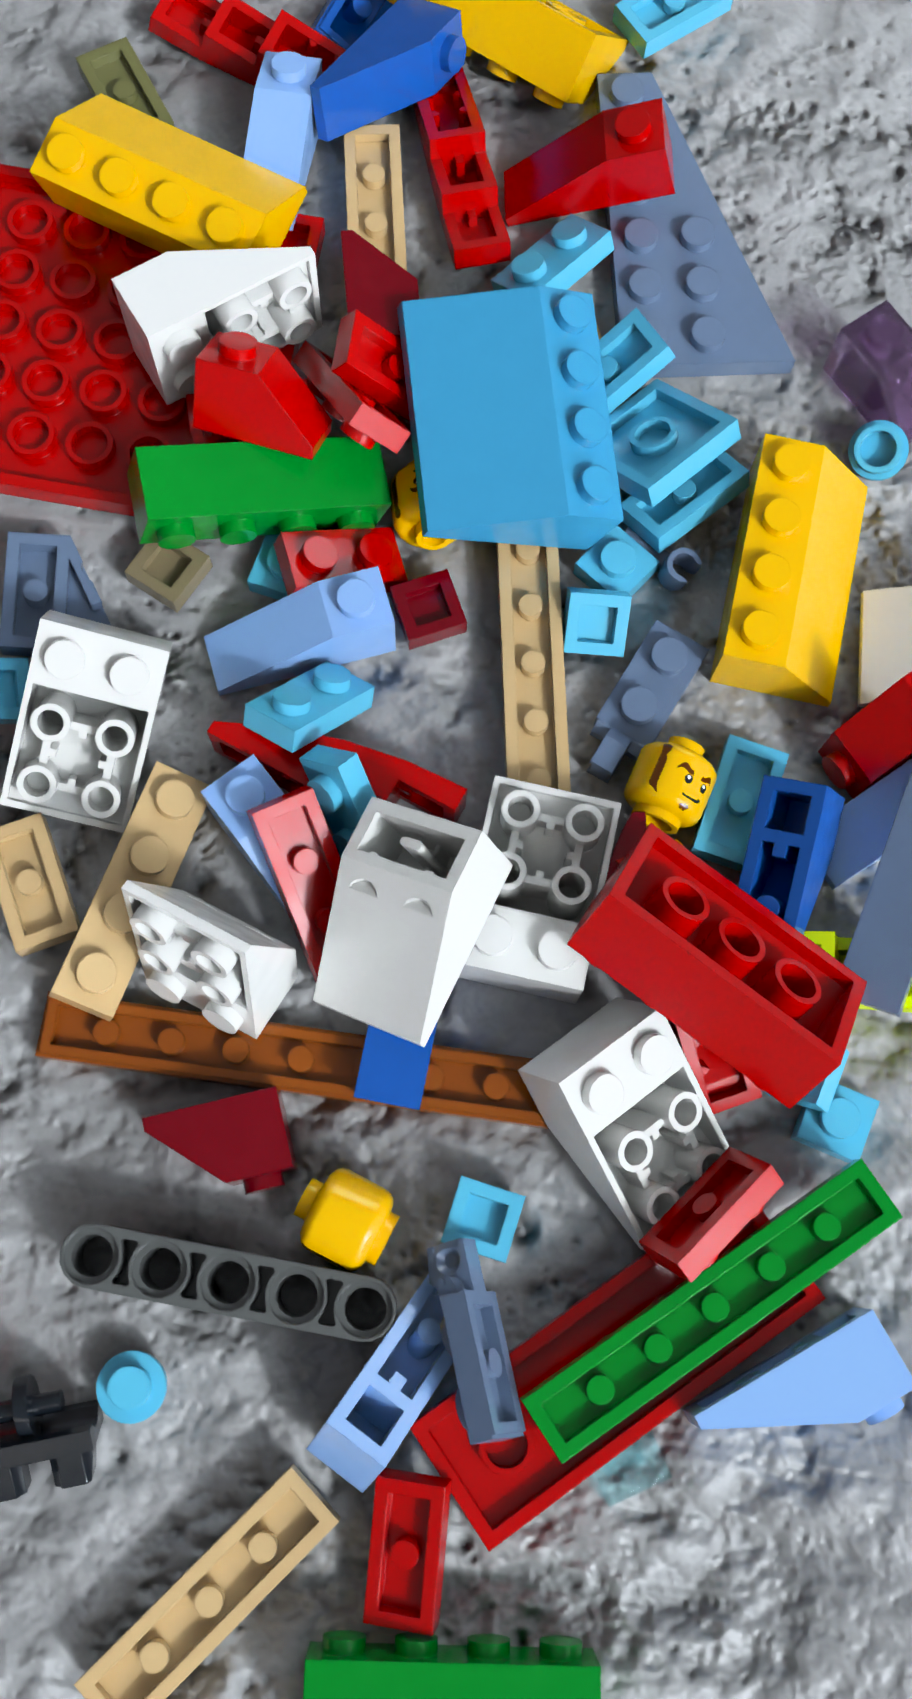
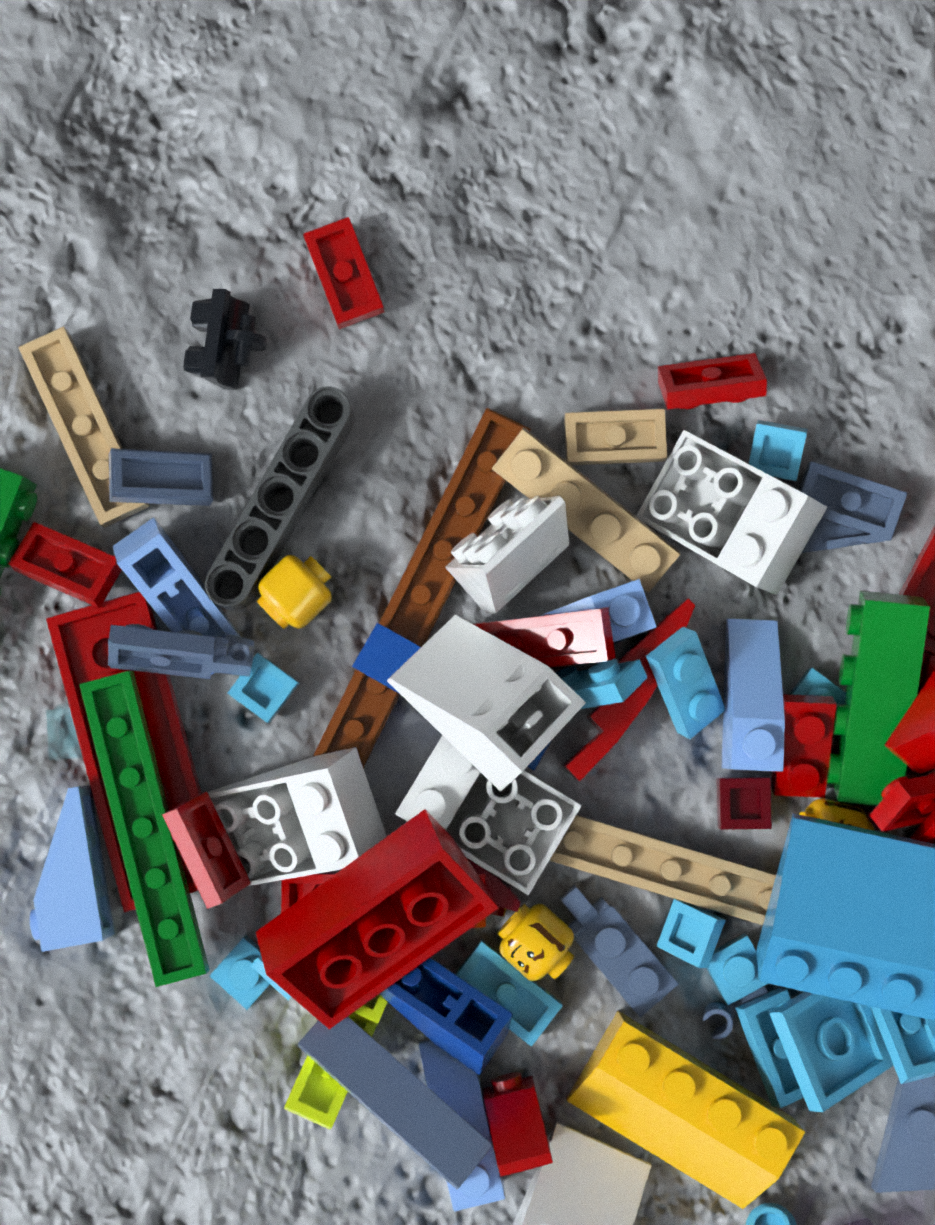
camera: 115 degrees right, 10 degrees up
(131, 1386) = (236, 413): medium azure plate -> none
(168, 573) = (832, 606): dark tan plate -> none
(232, 1138) = (378, 528): dark red slope -> none
(249, 1460) = (160, 477): none -> sand blue tile

